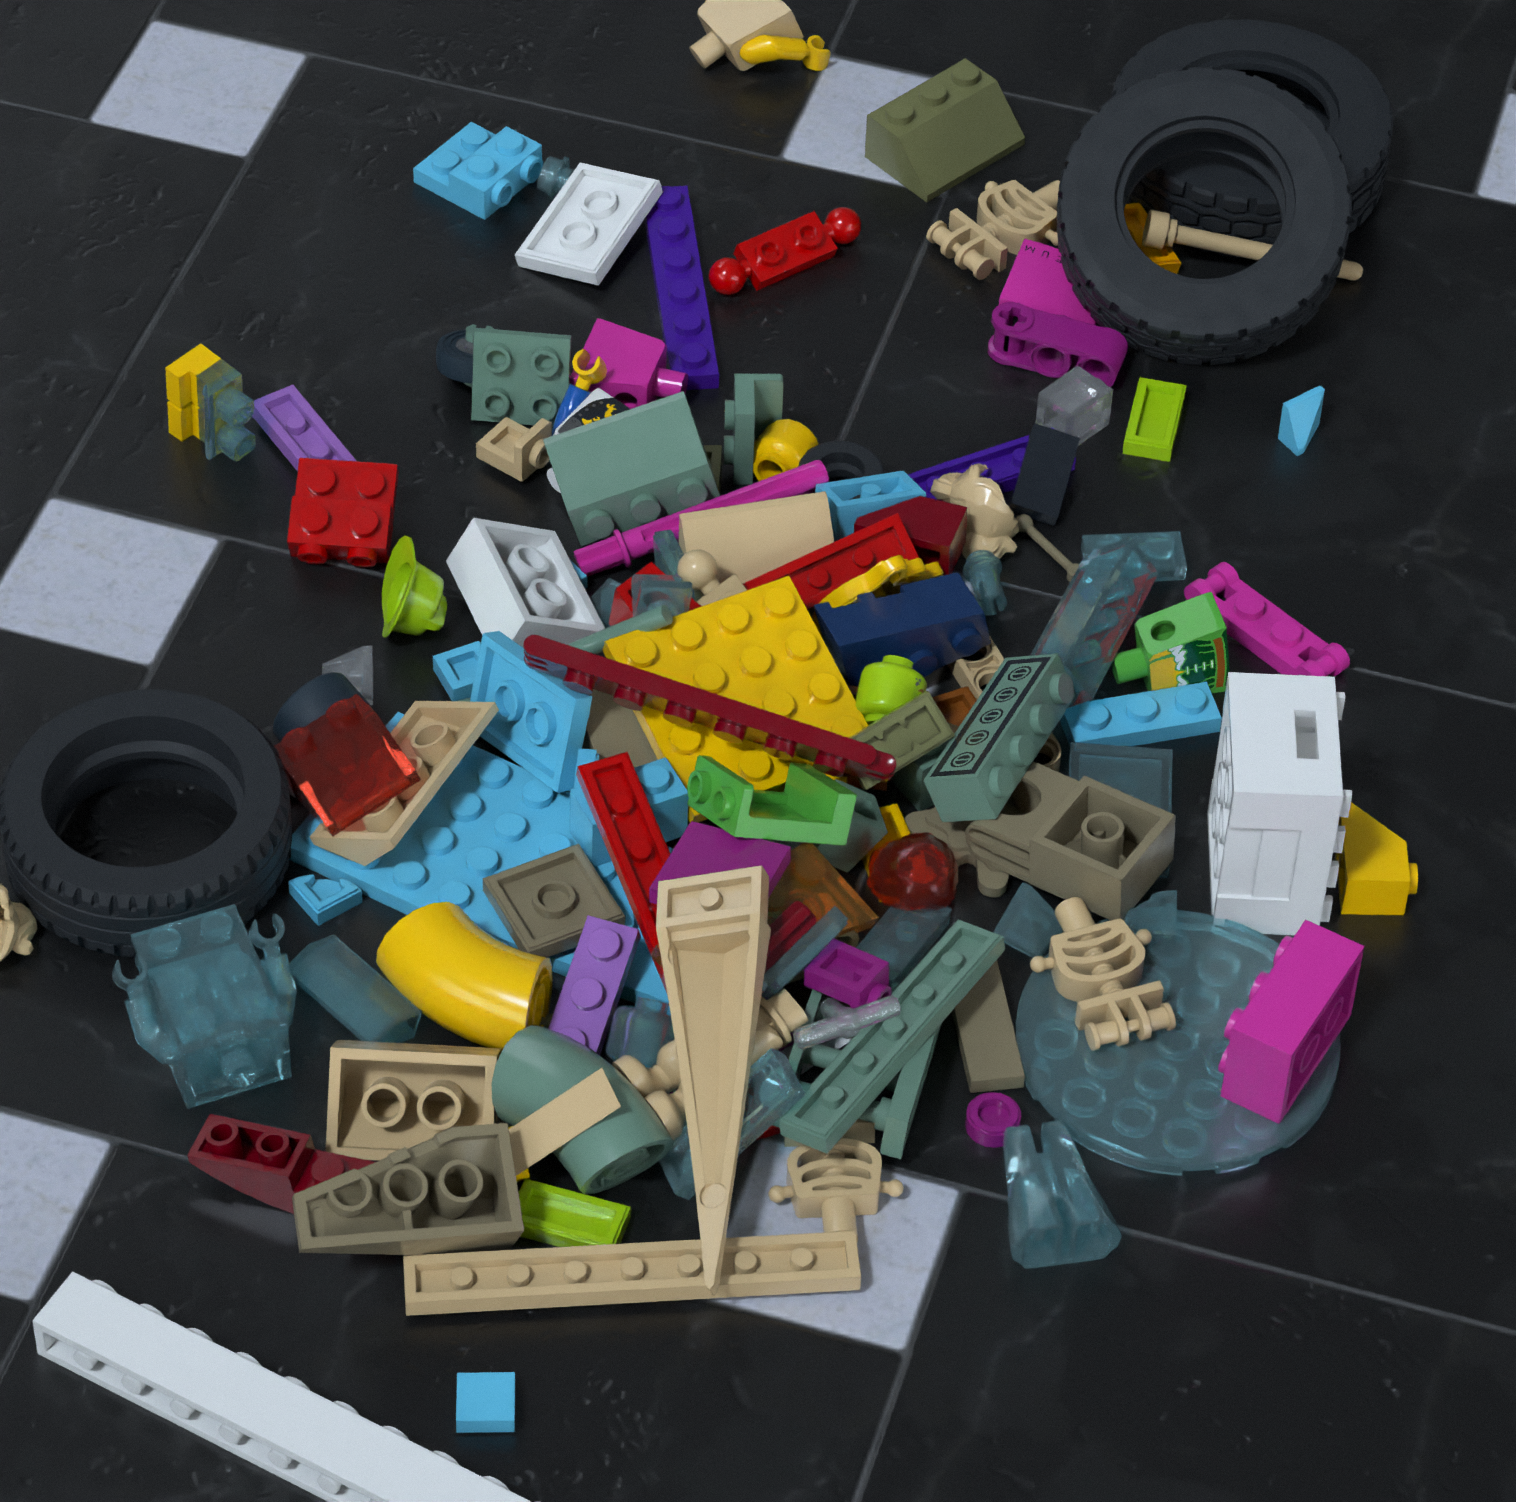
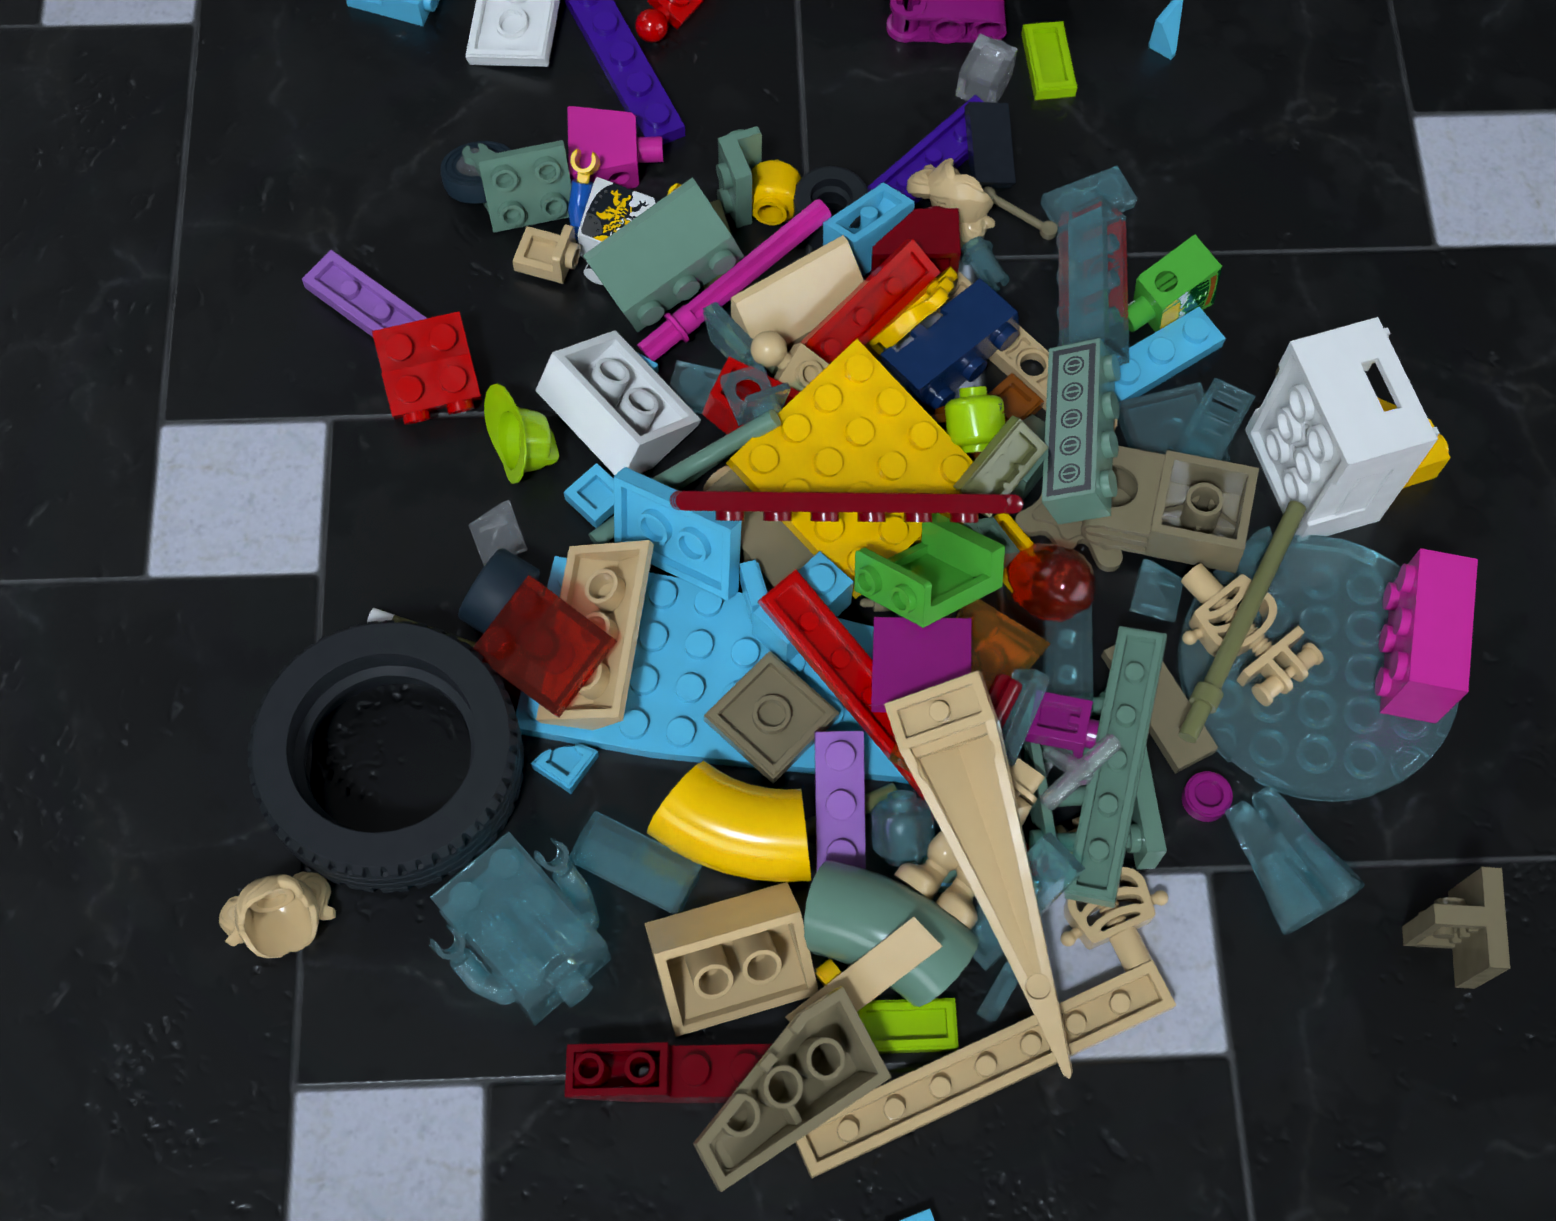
camera: 20 degrees left, 20 degrees up
(209, 404) = (269, 293): clear light blue hips -> none
(674, 1213) = (998, 994): none -> clear light blue tile
(1026, 1005) = (1208, 693): none -> olive bar
(1164, 785) = (1203, 444): none -> clear light blue slope
(1200, 1290) = (1470, 924): none -> dark tan bracket
(1267, 628) = (1227, 239): dark pink plate -> none

